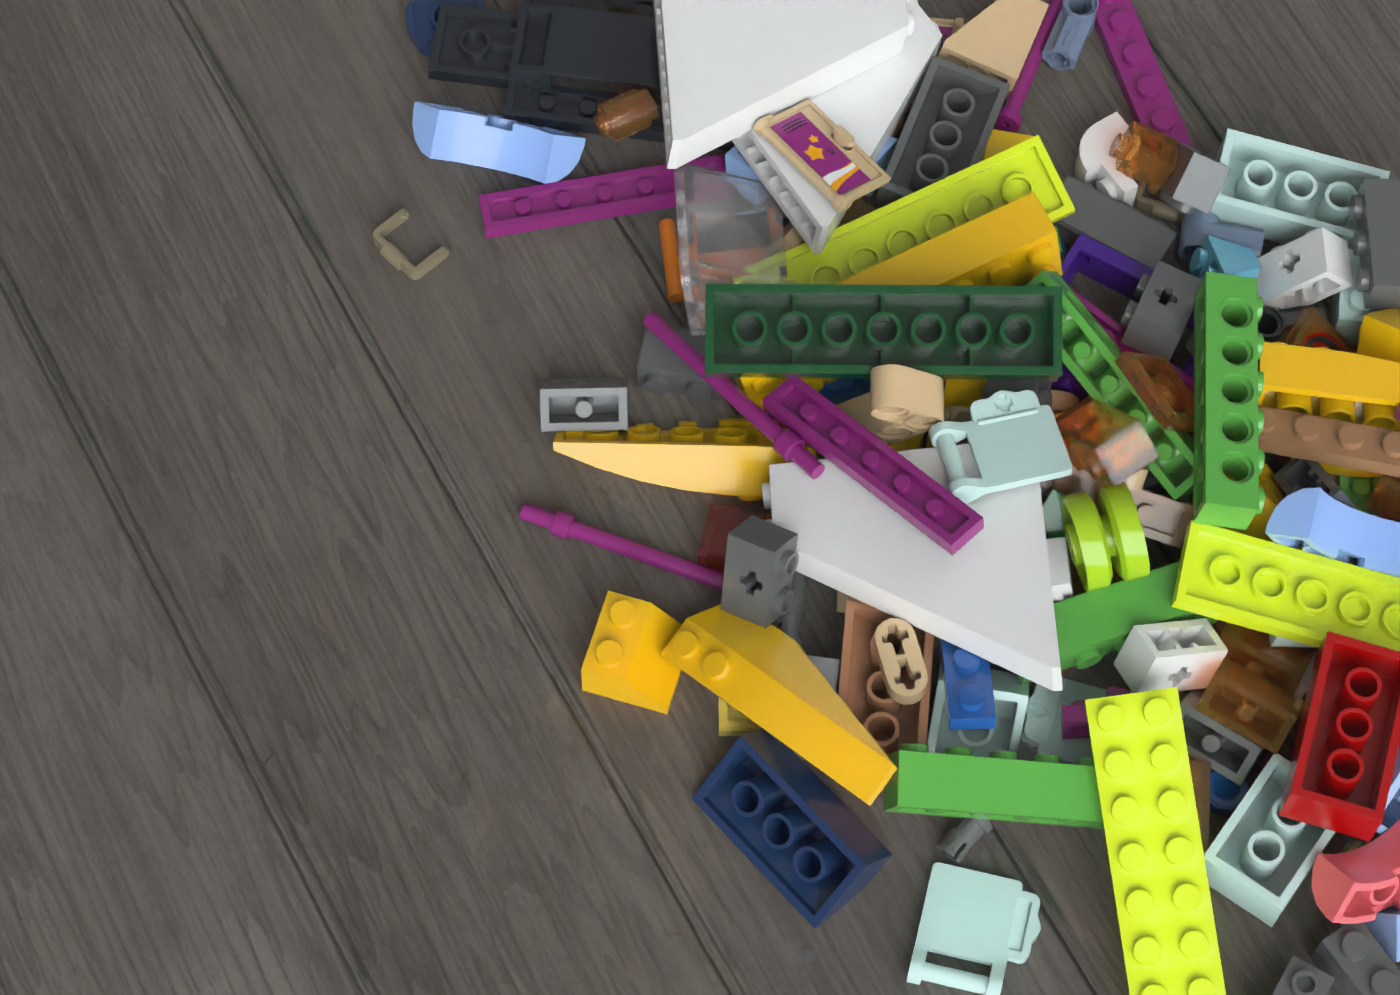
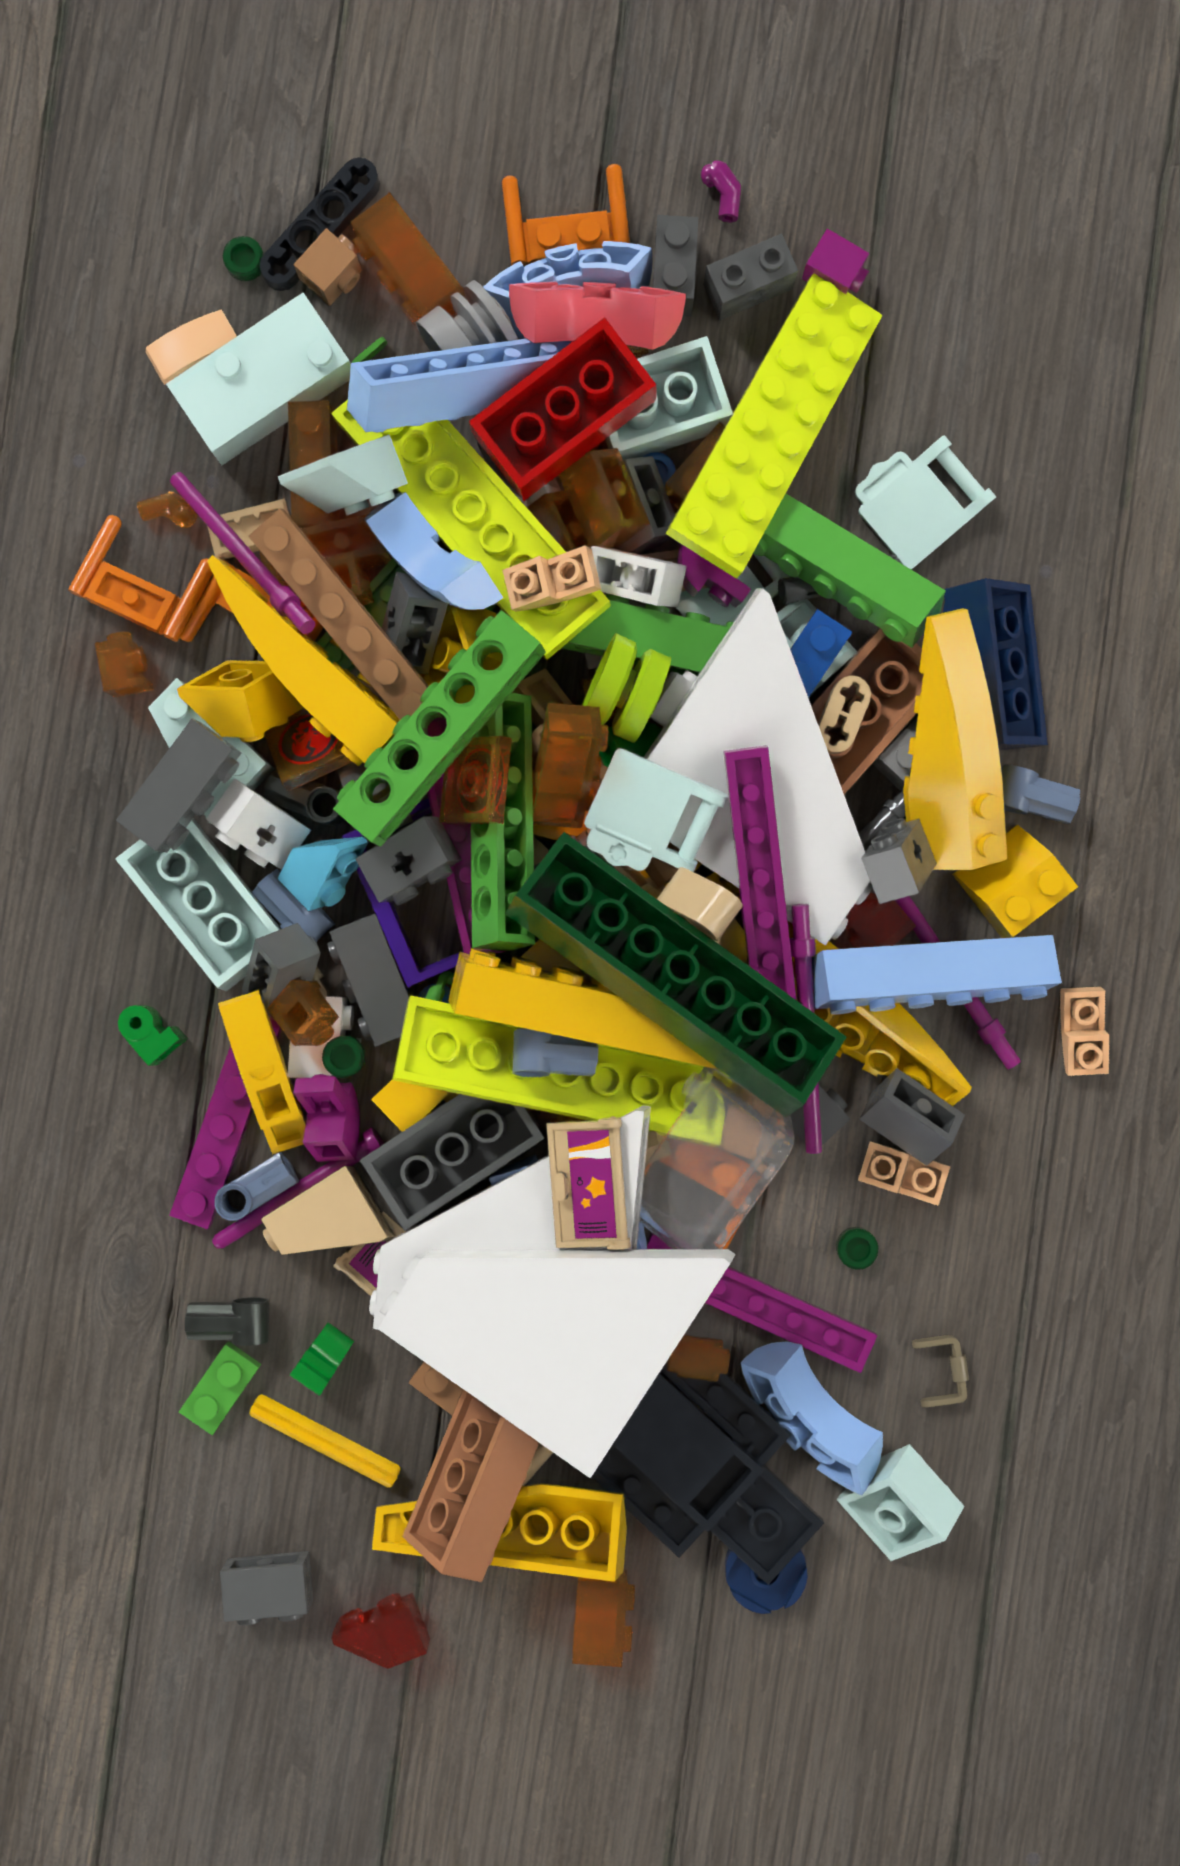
camera: 140 degrees left, 25 degrees up
(368, 129) = (904, 1505): none -> light aqua slope
(479, 578) = (1083, 1031): none -> light nougat slope
(549, 290) = (857, 1248): none -> dark green tile
(563, 360) = (903, 1173): none -> light nougat slope
(656, 514) = (934, 972): none -> light blue brick
(683, 735) = (1030, 794): none -> sand blue piece
(930, 224) = (542, 1053): none -> sand blue piece
(1054, 110) = (332, 1117): none -> magenta brick
(1086, 149) = (343, 1056): none -> dark green tile
(1138, 98) = (263, 1071): none -> yellow slope
(1238, 581) = (551, 580): none -> light nougat slope
(1249, 83) = (146, 1035): none -> green leg

